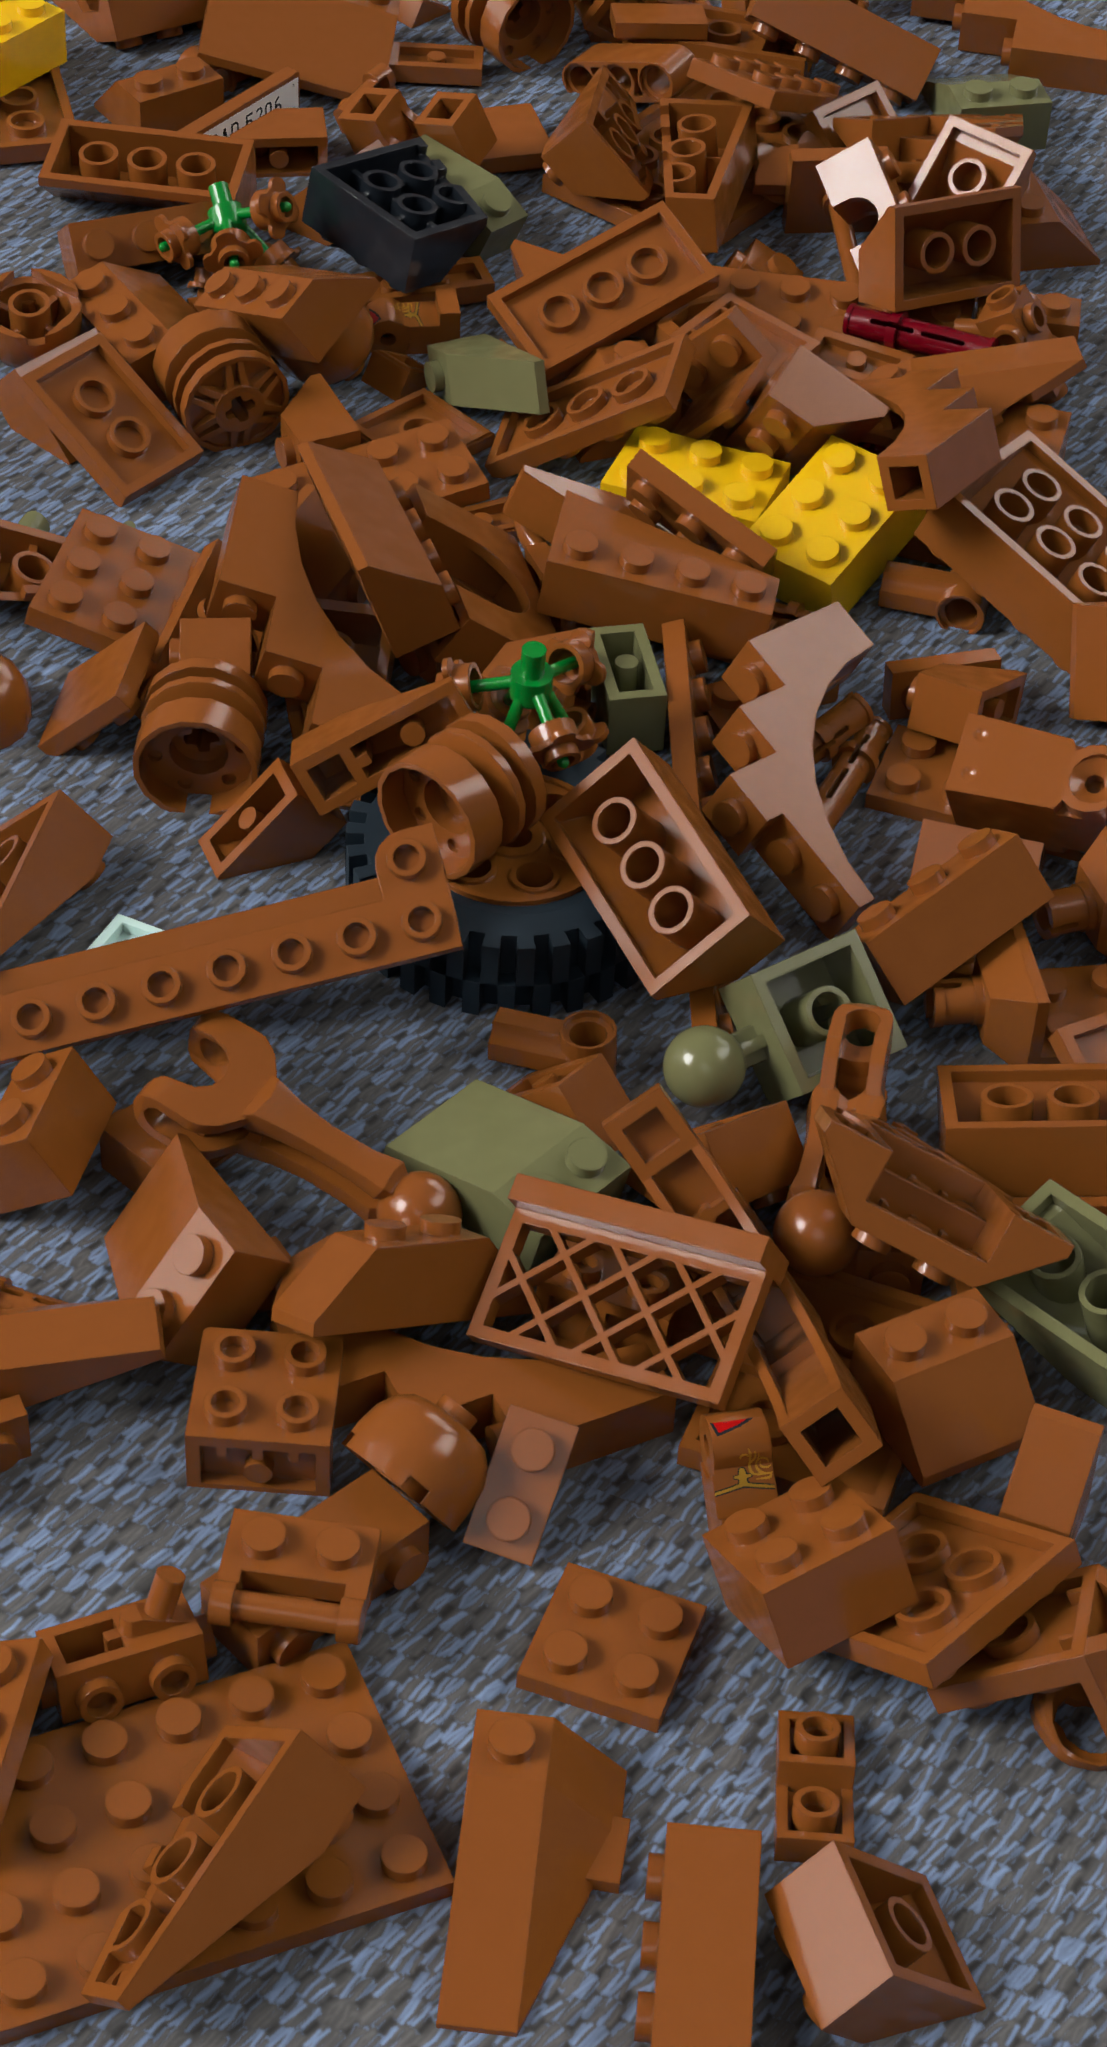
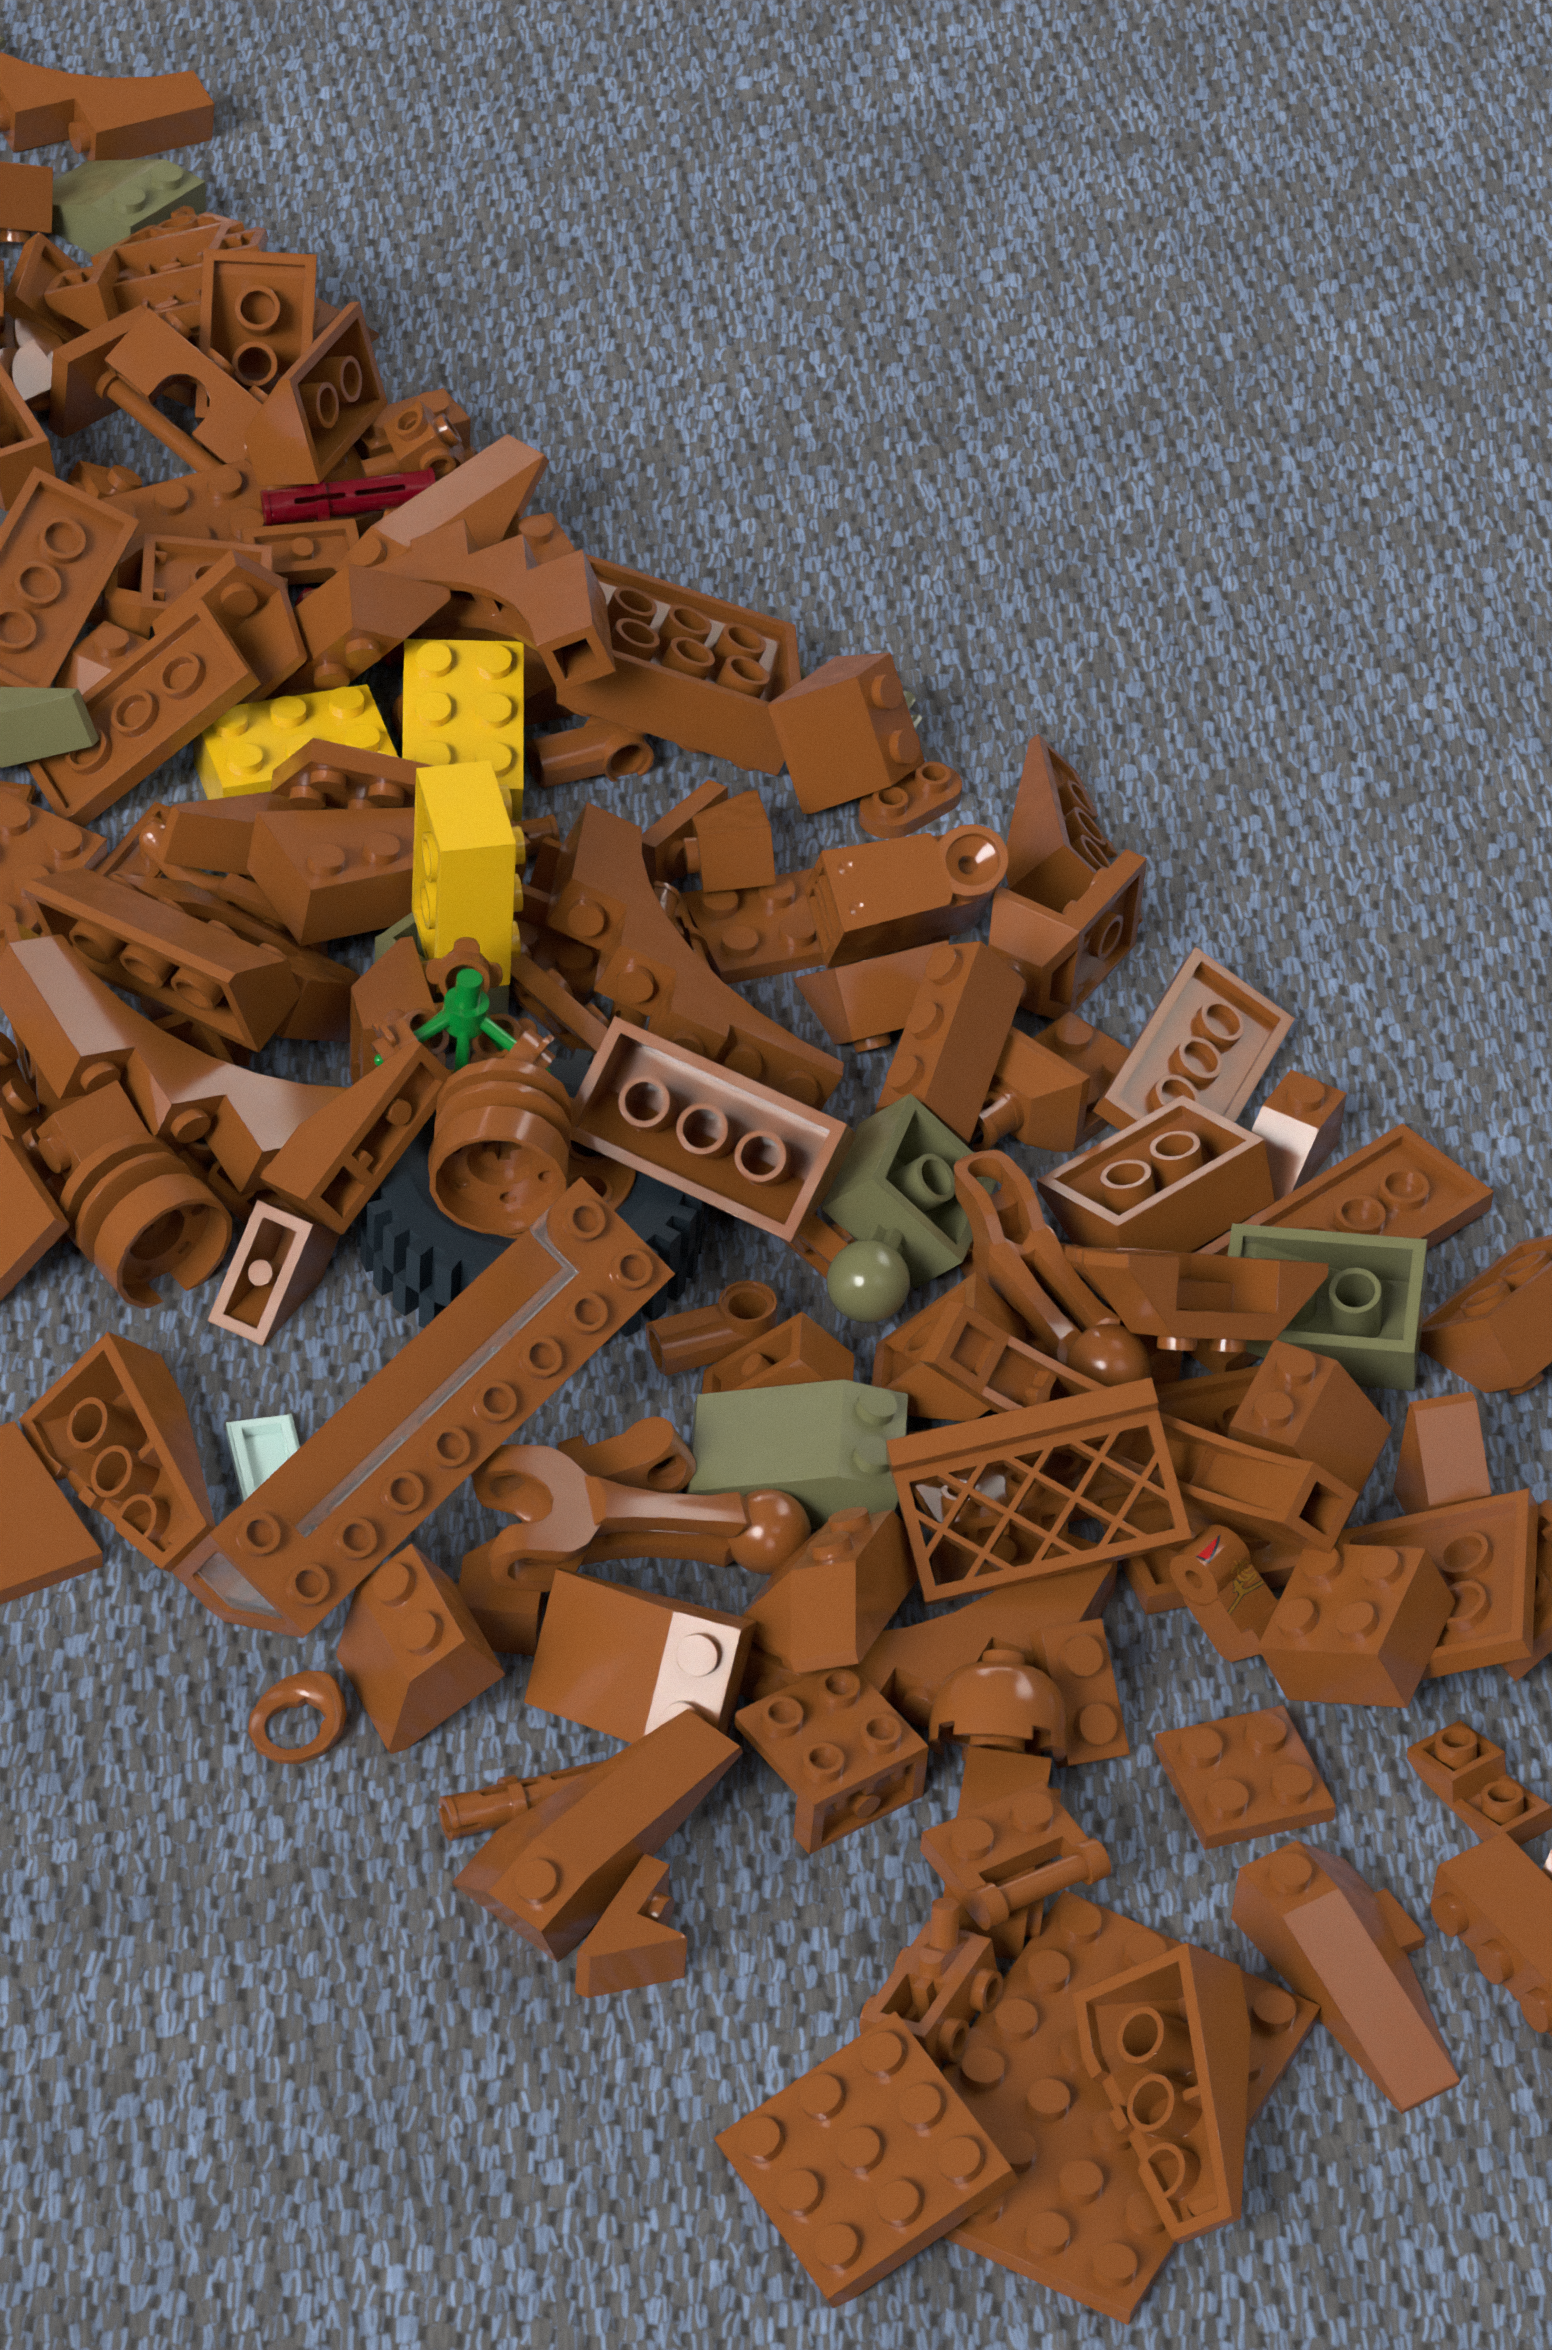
camera: 40 degrees left, 0 degrees up
(360, 1102) = (643, 1457): none -> dark orange leg
(651, 591) = (466, 863): none -> yellow brick

